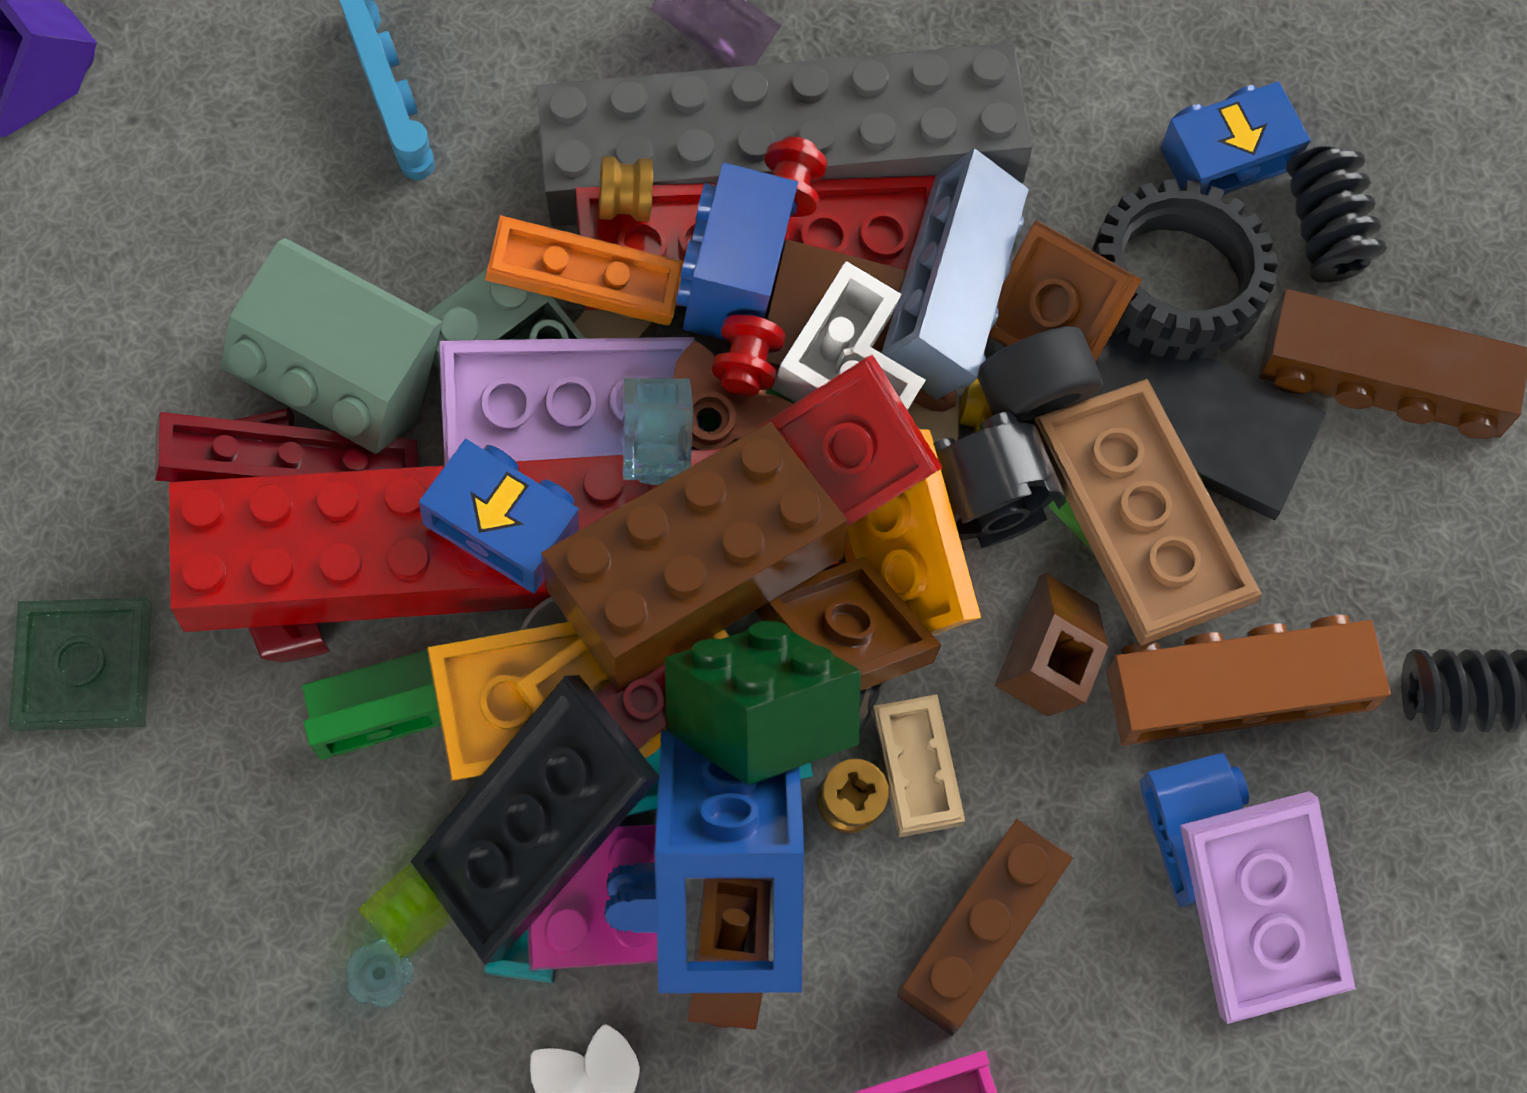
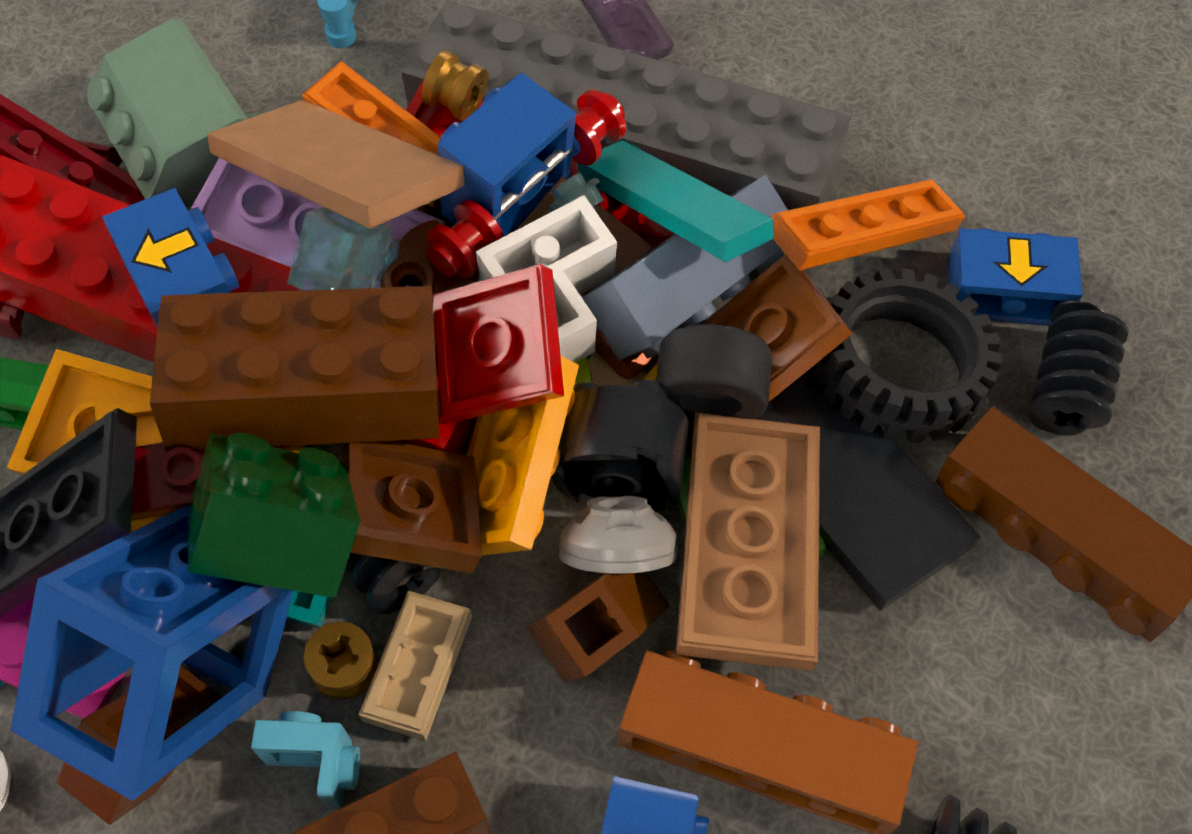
camera: 30 degrees right, 10 degrees down
(589, 335) = (337, 162): none -> medium nougat tile
(820, 260) = (573, 189): none -> clear light blue plate
(866, 878) = (307, 742): none -> medium azure bracket
(920, 220) = (679, 201): none -> teal tile
(1034, 569) = (618, 537): none -> light grey piece
(1082, 152) = (864, 223): none -> orange tile

